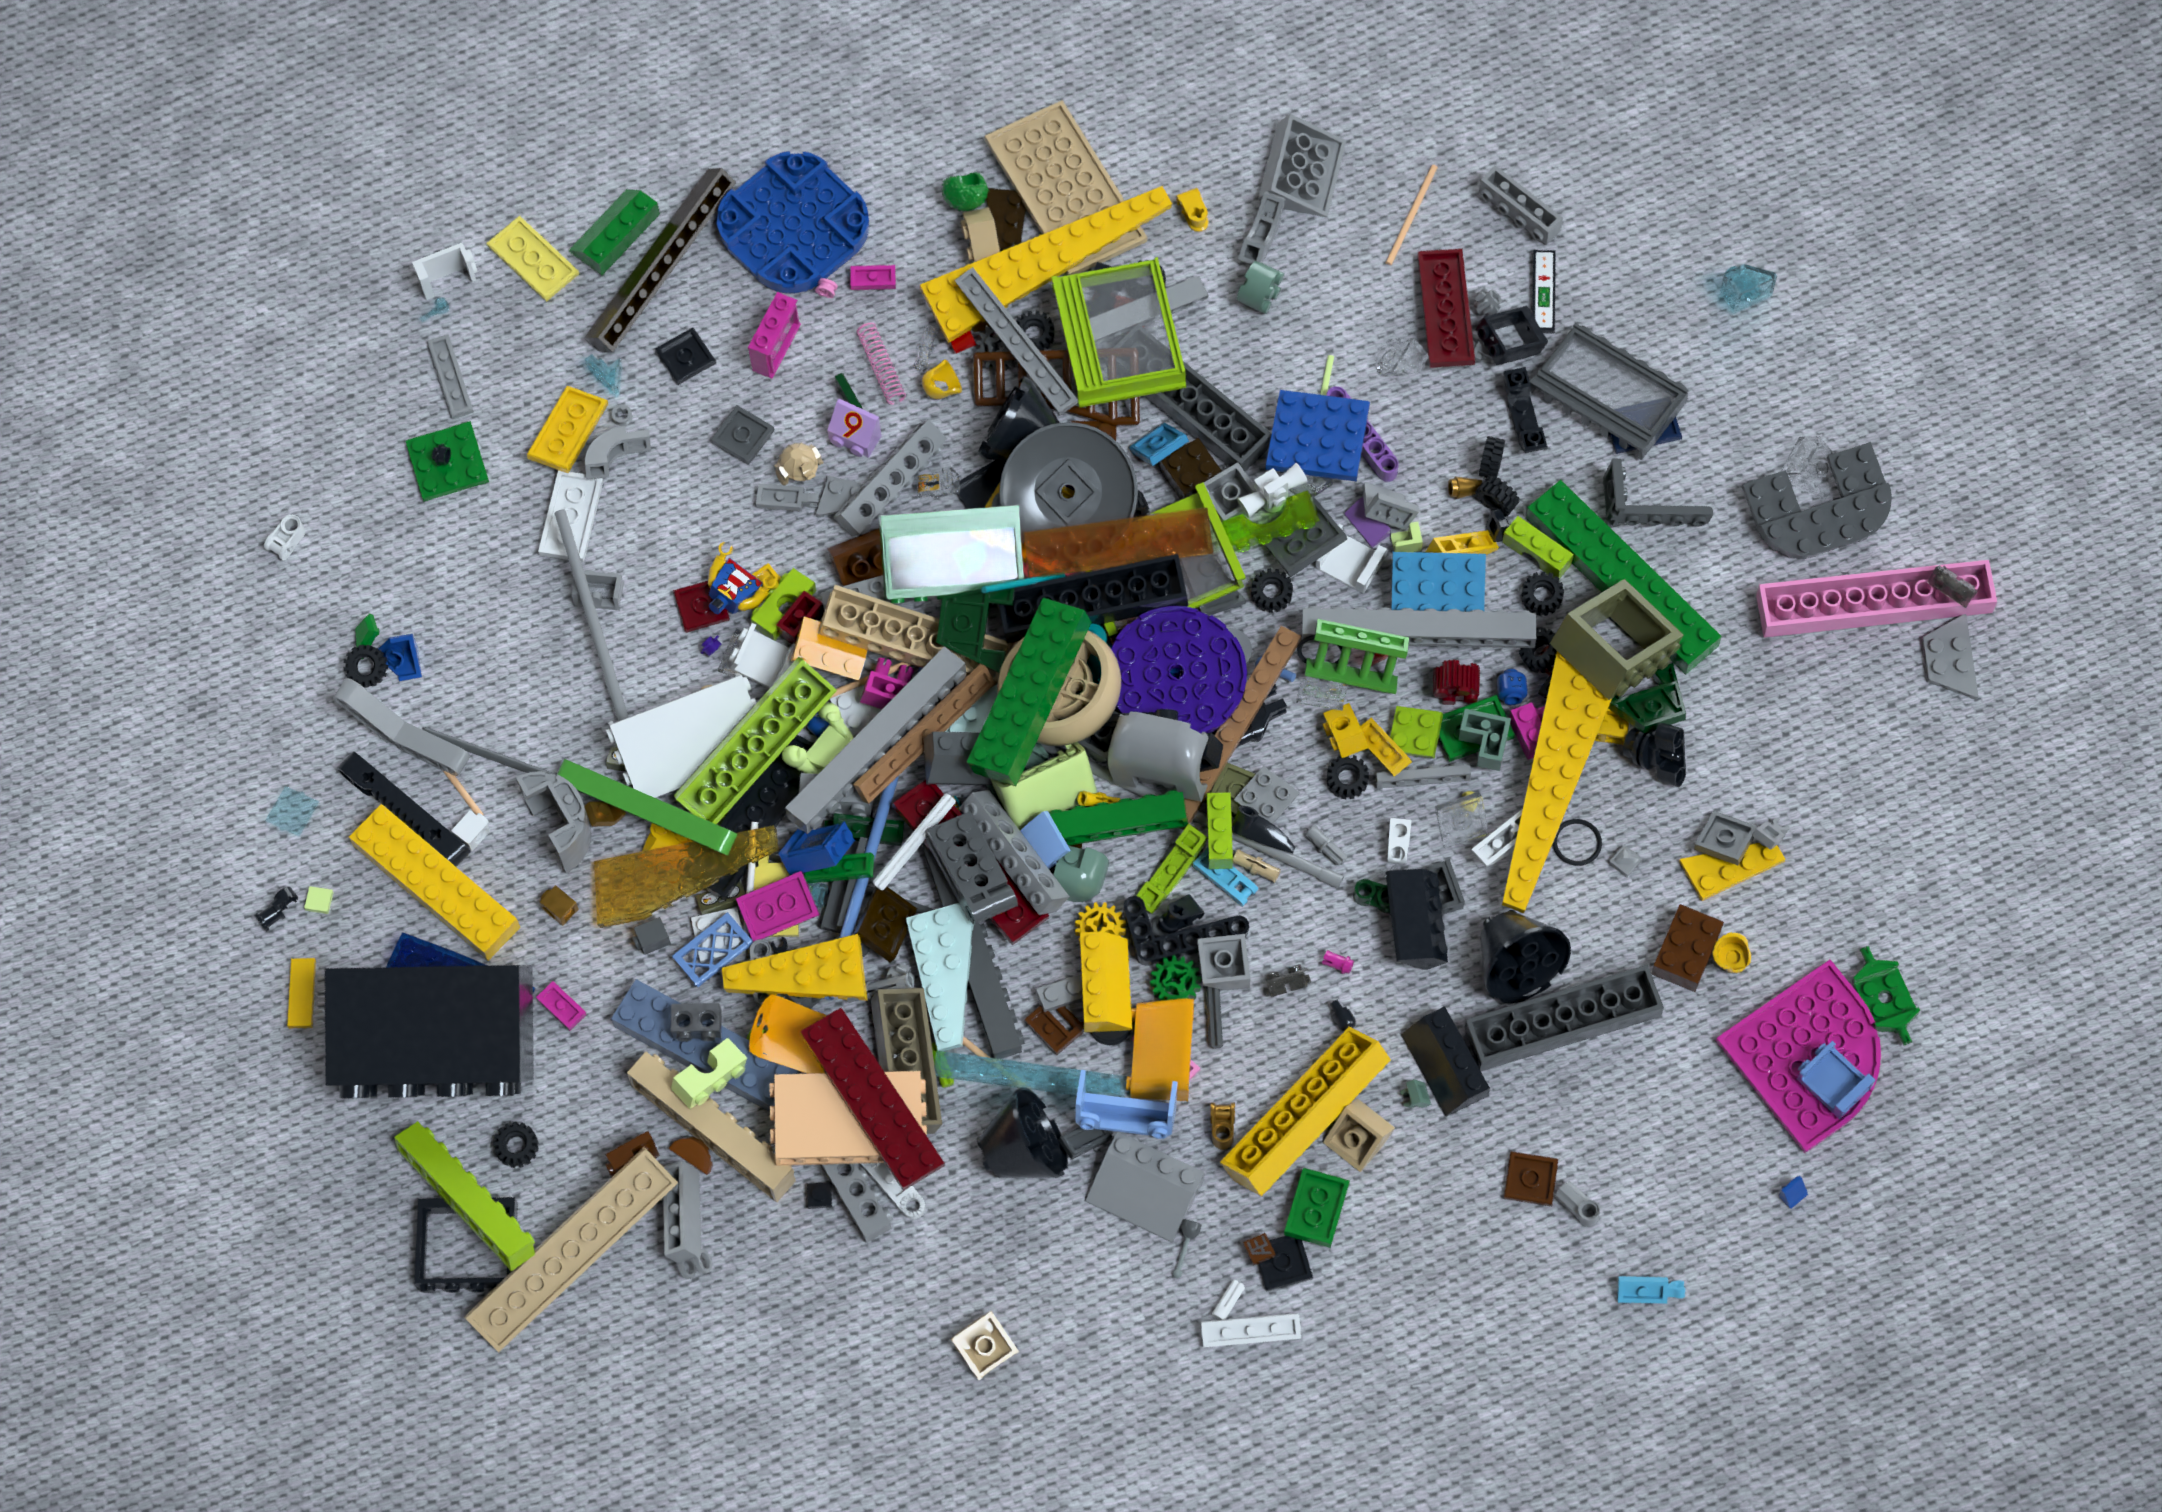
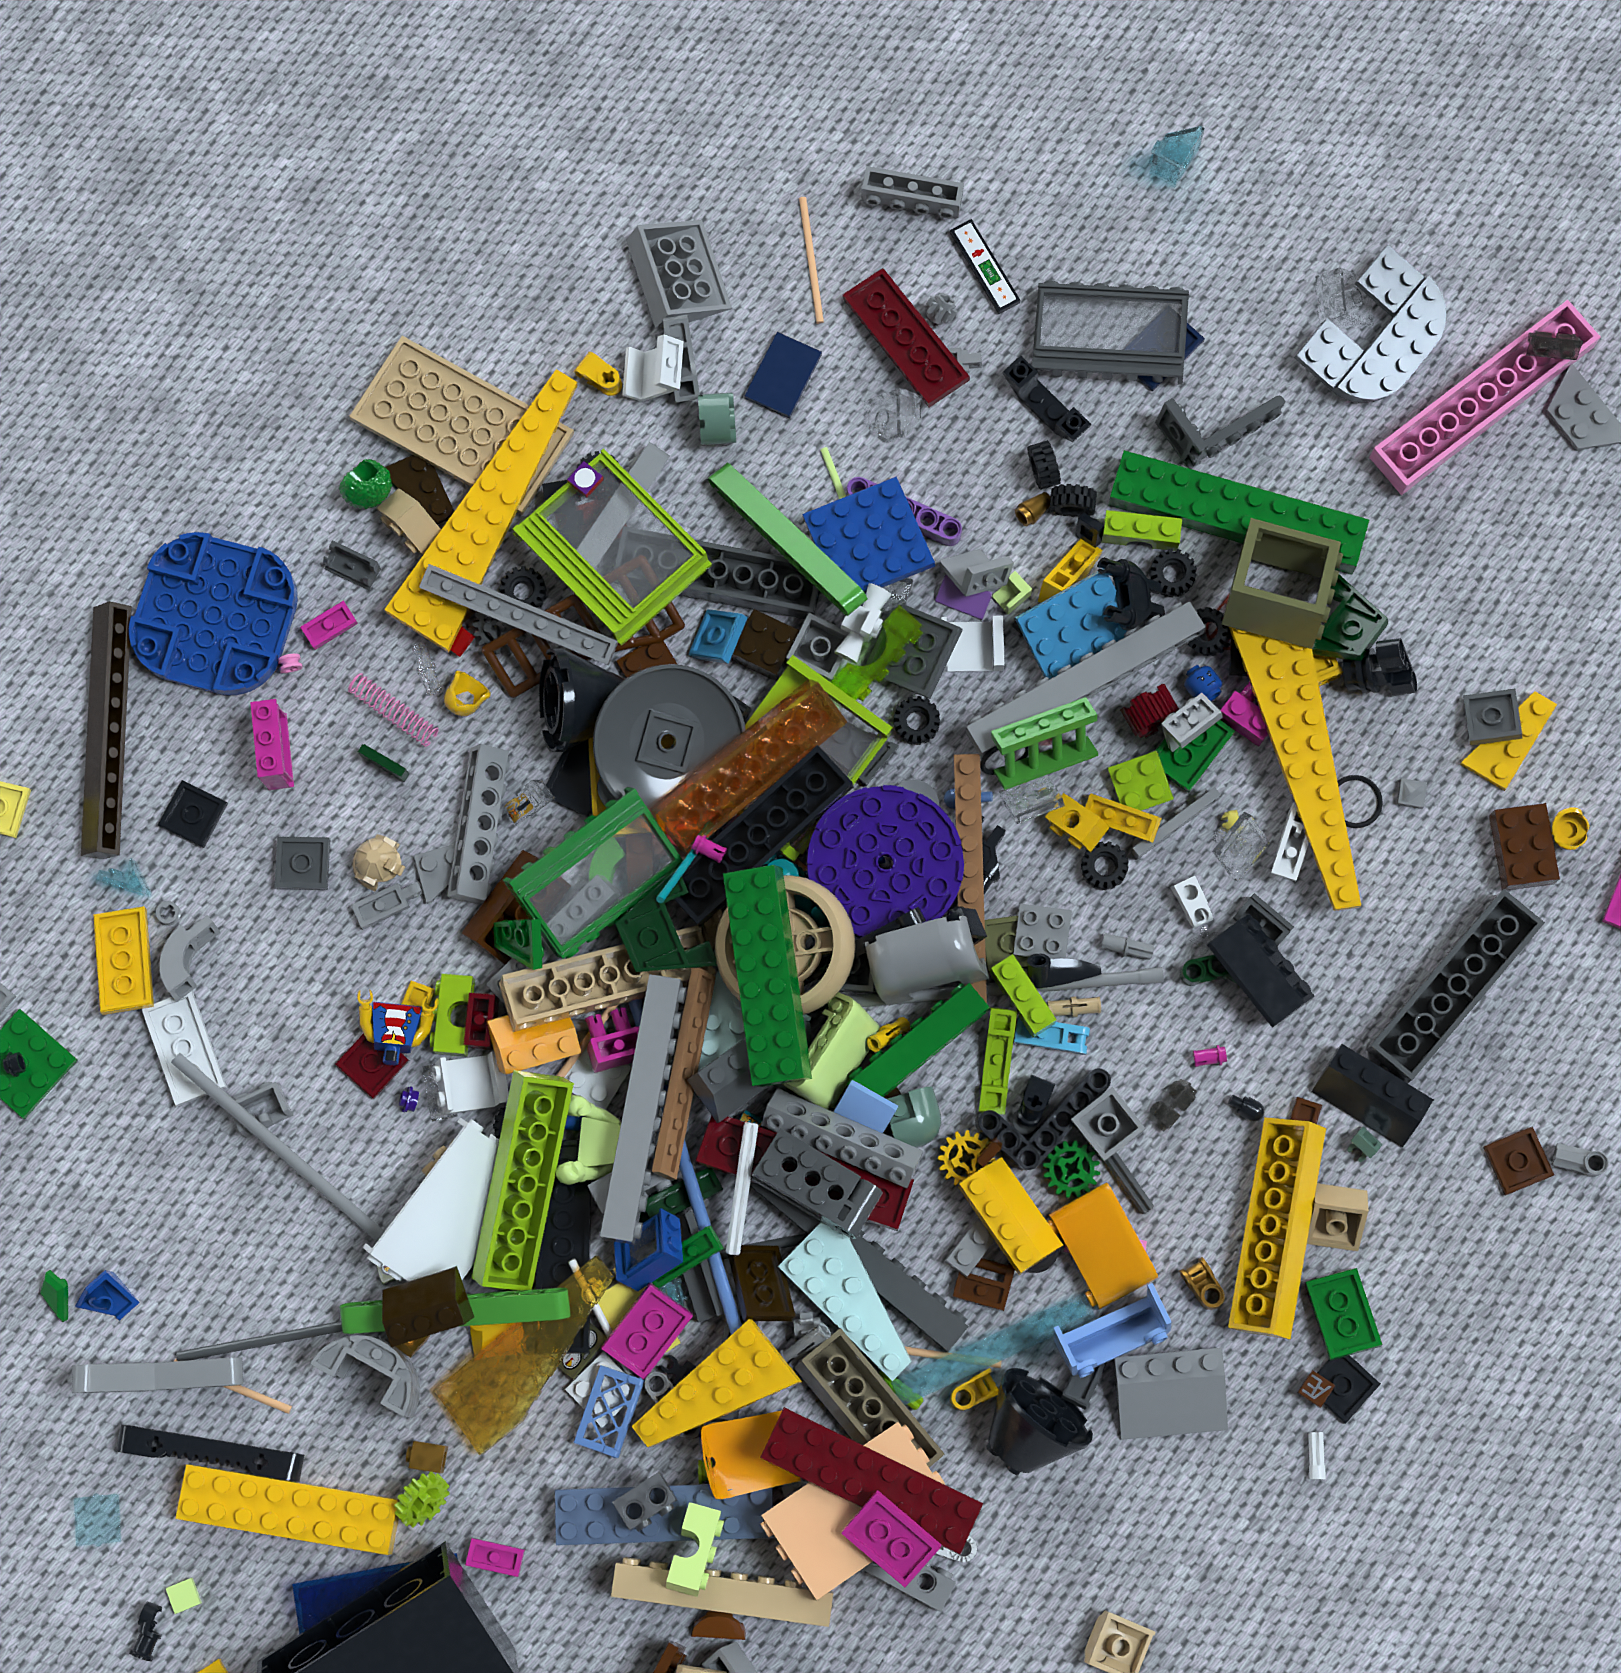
camera: 30 degrees left, 10 degrees up
(379, 665) = (73, 1343): black tyre -> none
(471, 829) = (291, 1432): white brick -> none
(534, 929) = (421, 1499): none -> lime gear
(616, 230) = (39, 724): green slope -> none
(625, 787) = (425, 1306): none -> dark brown slope
(651, 936) = (538, 1433): dark grey brick -> none
(819, 1195) = (866, 1592): black plate -> none
(854, 429) = (411, 795): lavender slope -> none
(858, 1143) = (891, 1538): none -> dark pink plate
(864, 569) = (520, 940): none -> green wing
(917, 244) = (351, 565): none -> dark grey hinge
(997, 1094) = (976, 1390): none -> yellow piece
(1044, 577) = (708, 848): none -> dark pink pin
(1118, 925) = (989, 1151): none -> reddish brown tile
(1128, 270) = (585, 479): none -> tile
(1189, 1230) = (1238, 1409): hinge -> none
(1234, 228) = (653, 371): none -> white panel
(1251, 1330) = (1356, 1473): white plate -> none
(1255, 399) = (788, 539): none -> bright green beam
(1334, 286) = (783, 375): none -> dark blue tile
(1389, 1044) = (1305, 1110): none -> reddish brown tile
(1477, 698) = (1190, 721): none -> light grey bracket
(1489, 732) = (1221, 747): sand green brick -> none
(1497, 586) = (1132, 594): none -> black connector
(1521, 956) = (1378, 949): black cone -> none
(1522, 320) = (985, 308): black window -> none
(1770, 834) = (1531, 688): light grey plate -> none

